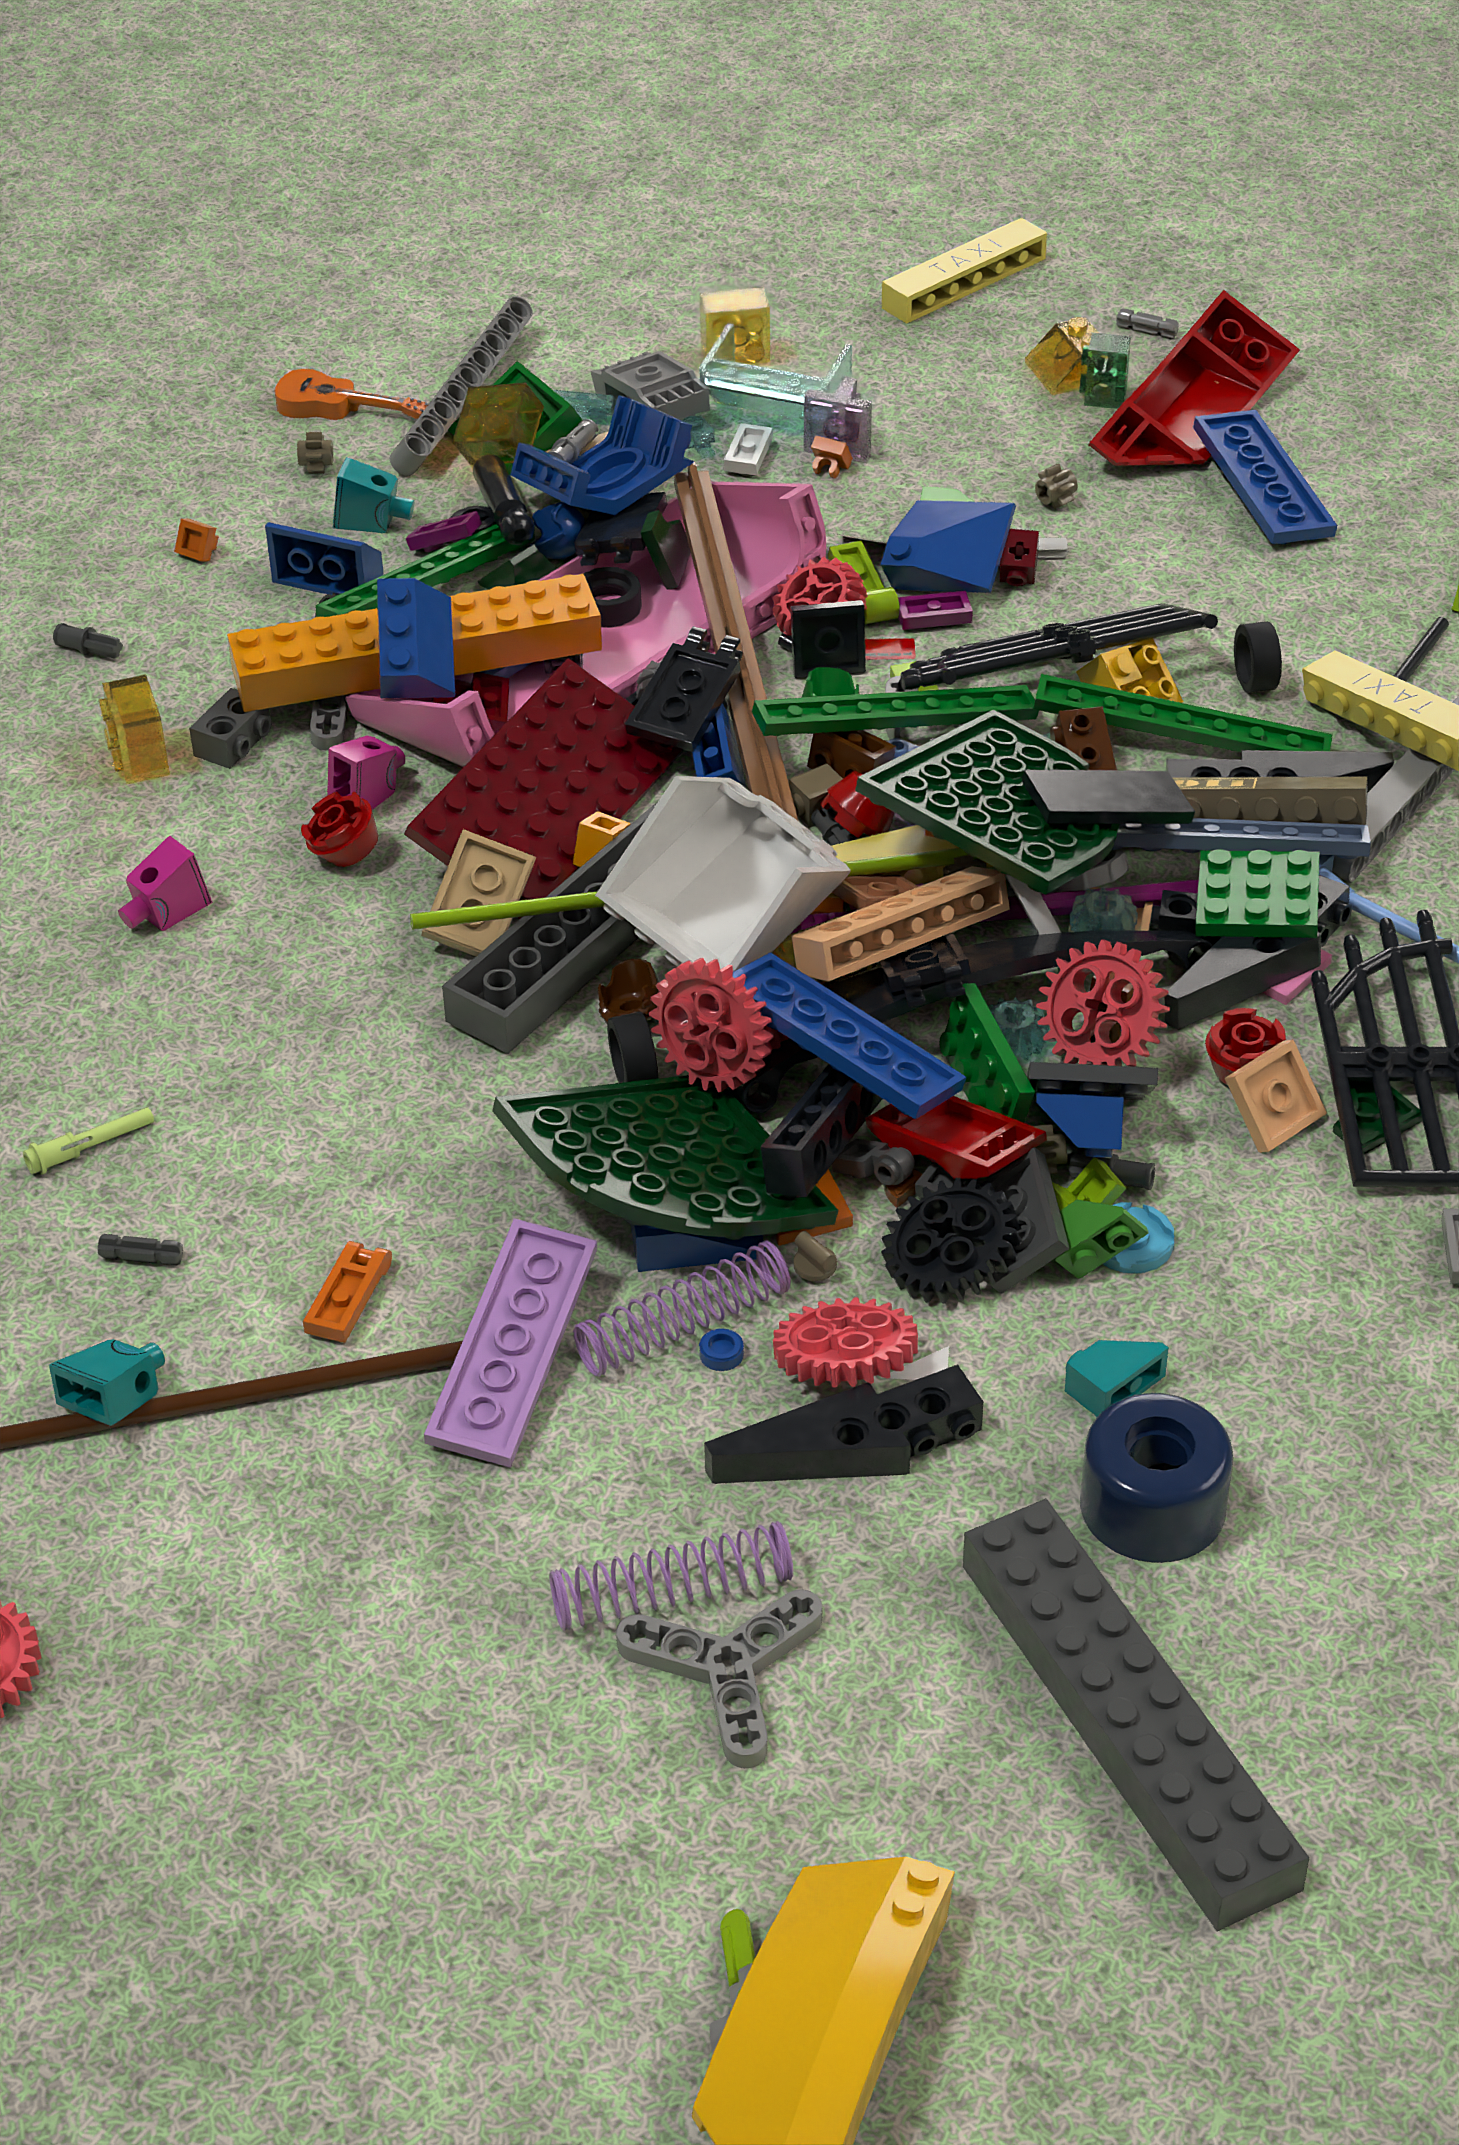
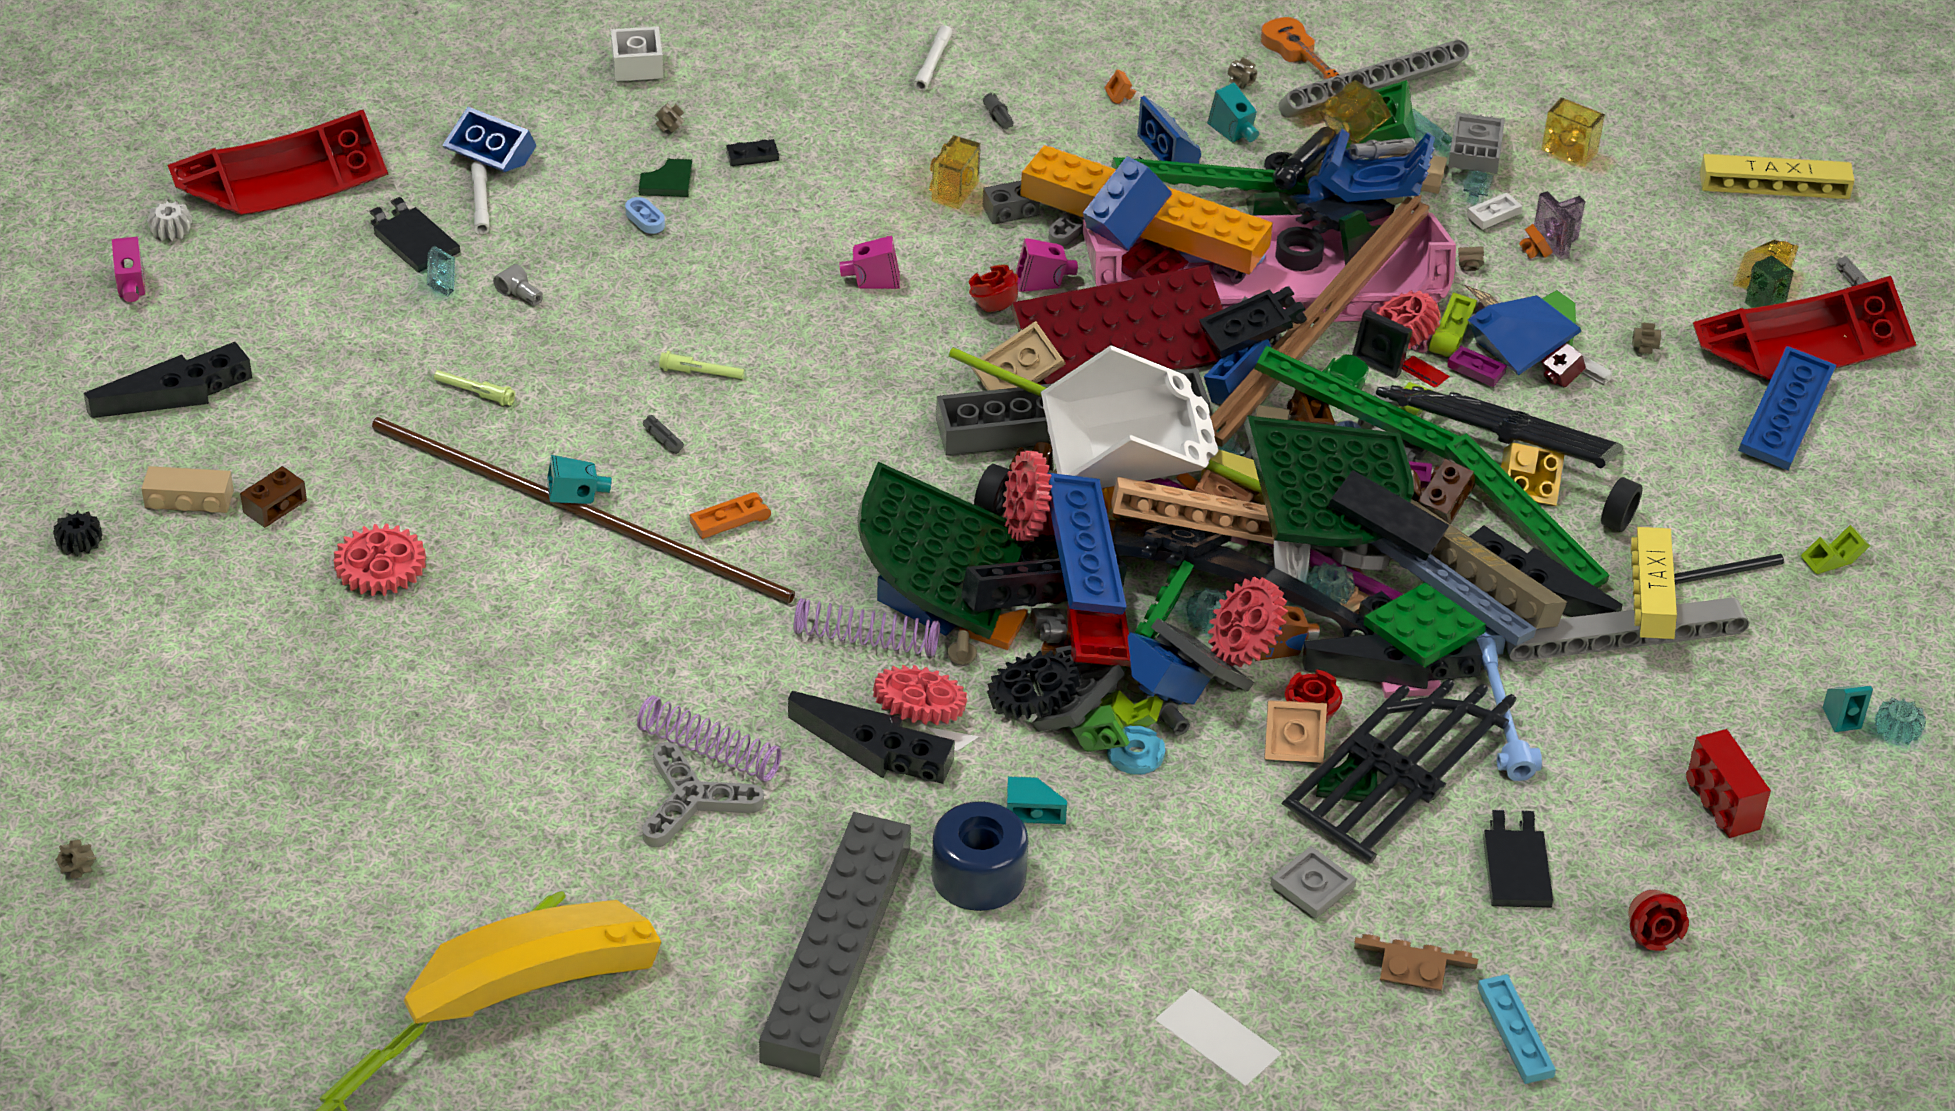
camera: 40 degrees right, 0 degrees up
(434, 534) = (1254, 158): magenta plate -> none
(511, 1343) = (766, 586): lavender plate -> none
(721, 1349) = (867, 661): blue tile -> none
(763, 387) = (1526, 157): clear light blue windscreen -> none

